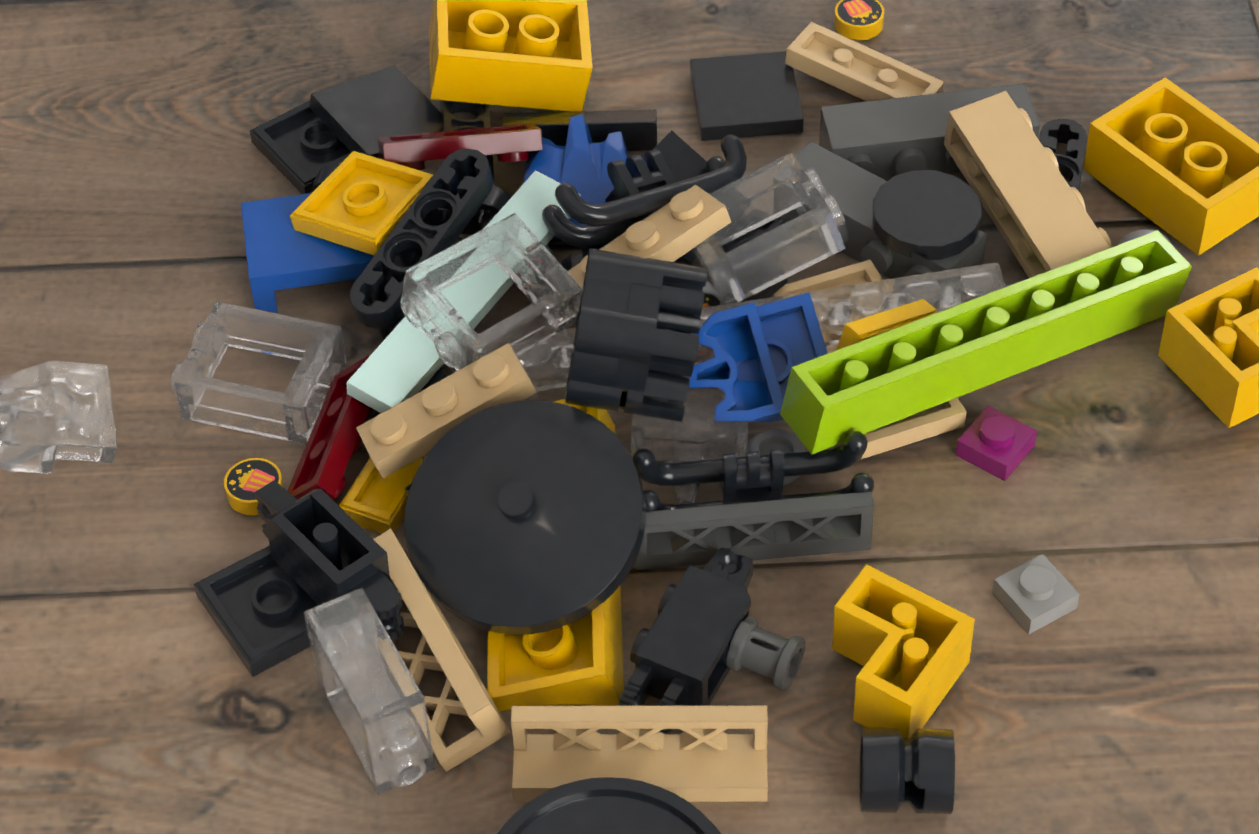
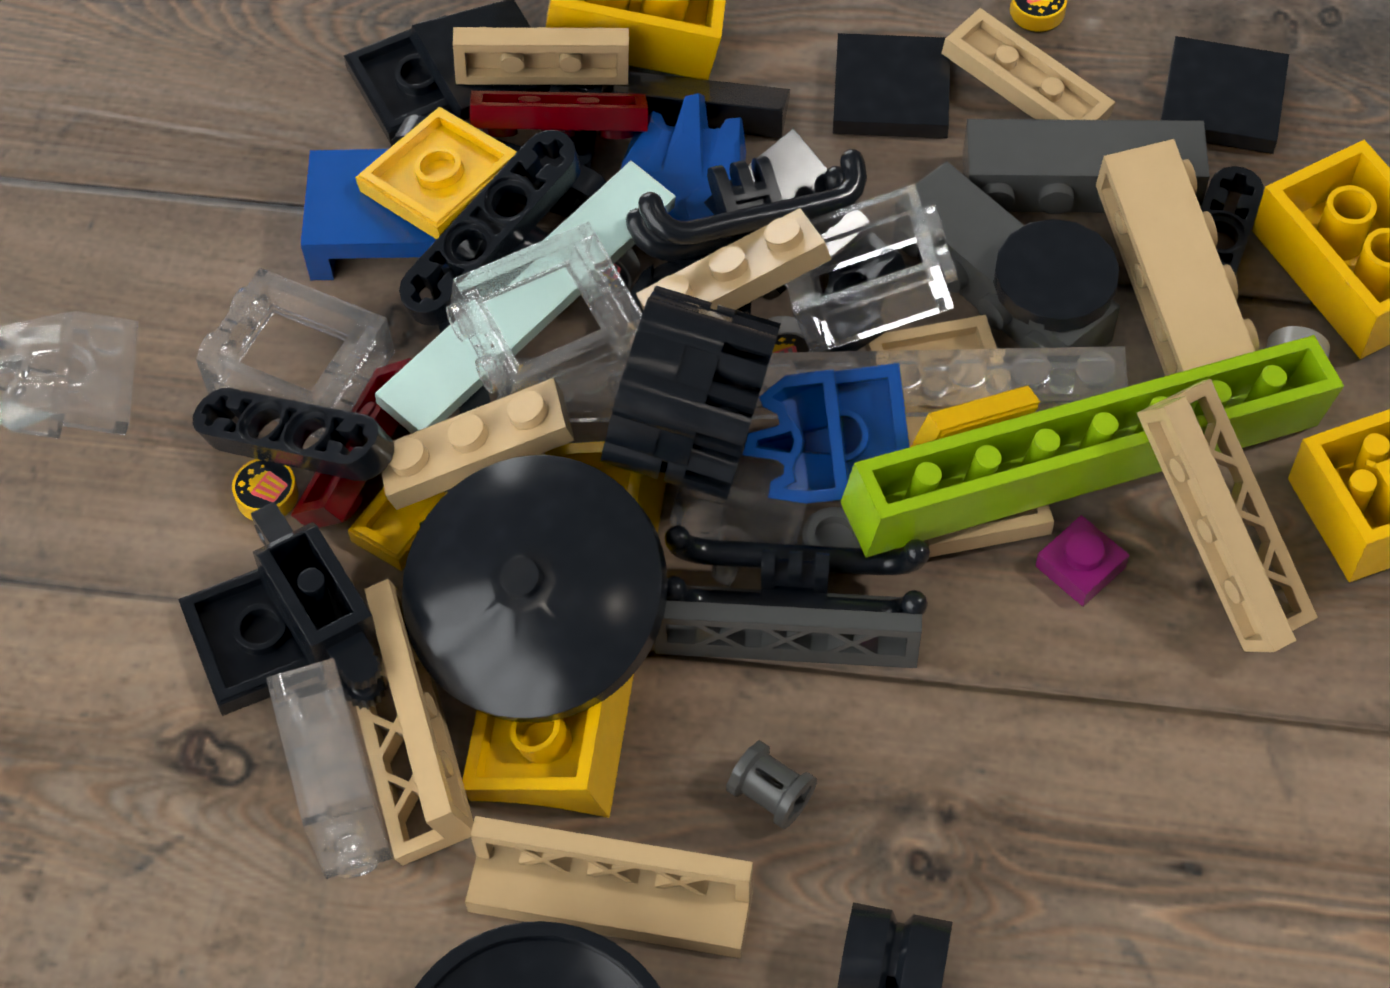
camera: 10 degrees right, 10 degrees up
(333, 429) = (298, 420): none -> black beam
(435, 101) = (541, 56): none -> tan plate
(690, 640) = (689, 759): black hinge -> none
(908, 649) = (930, 812): yellow brick -> none
(1035, 593) = (1087, 755): light grey plate -> none
(1045, 59) = (1228, 88): none -> black tile
(1116, 381) = (1218, 519): none -> tan fence

